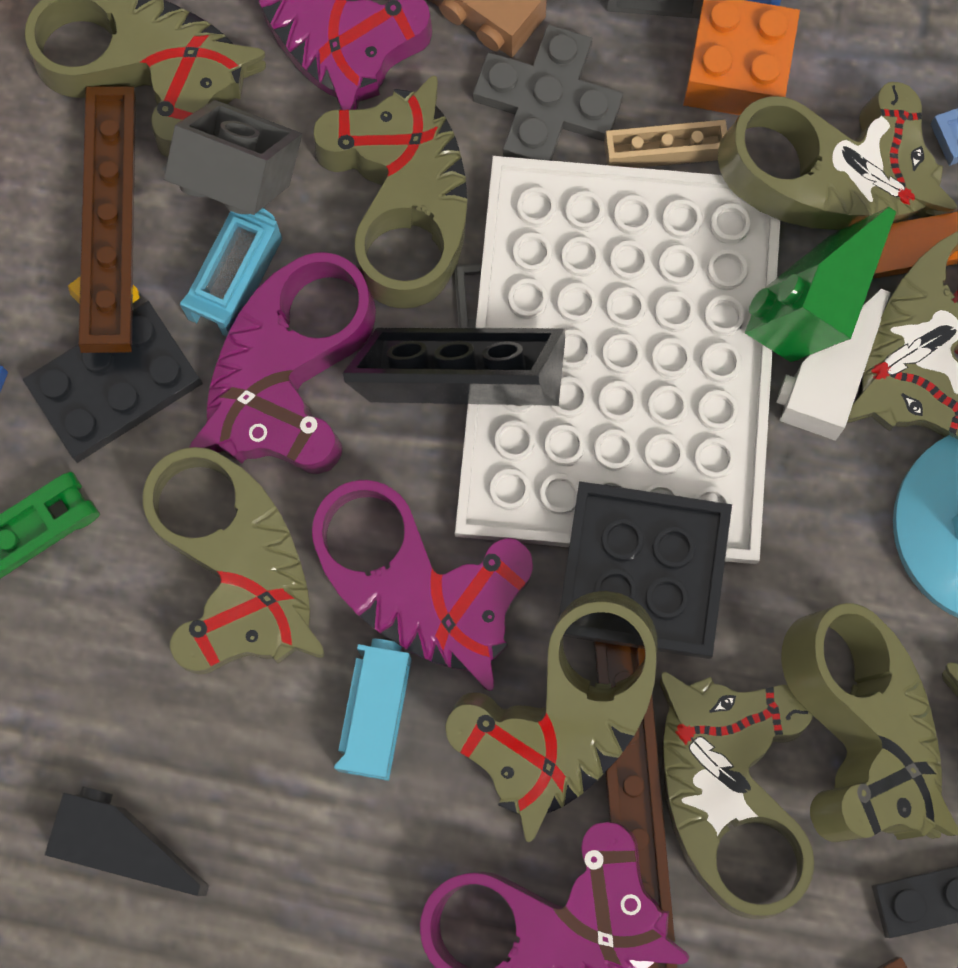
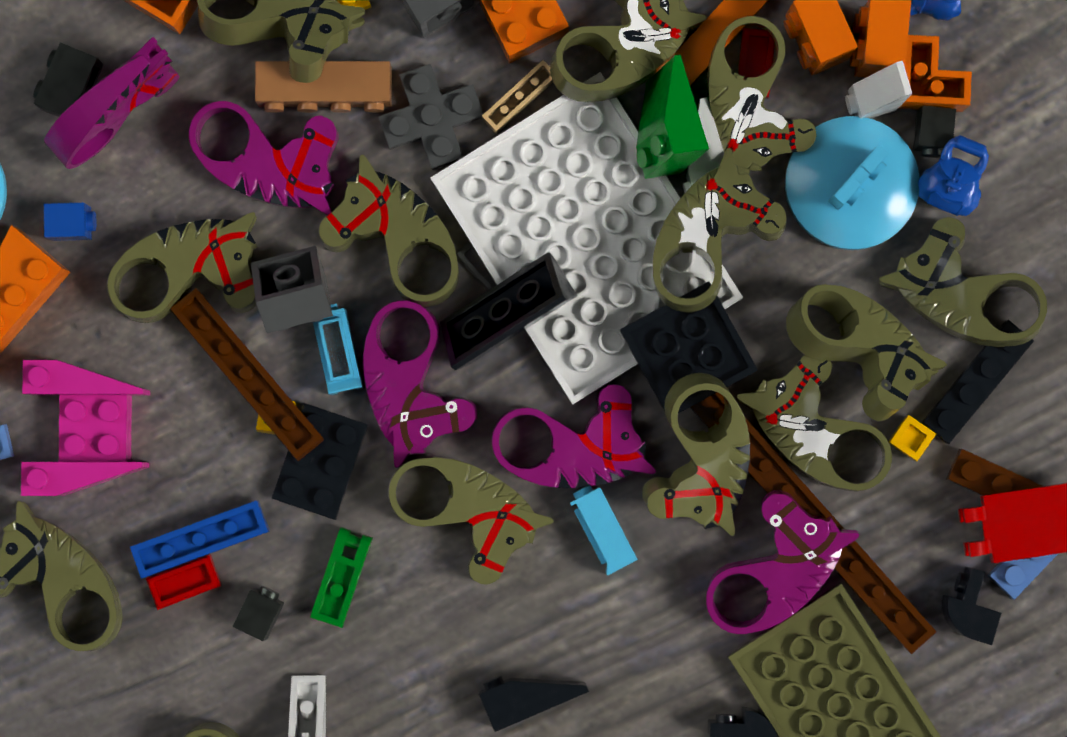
camera: 40 degrees left, 10 degrees up
(782, 421) = (714, 206): none -> olive animal
(846, 894) = (912, 438): none -> yellow plate

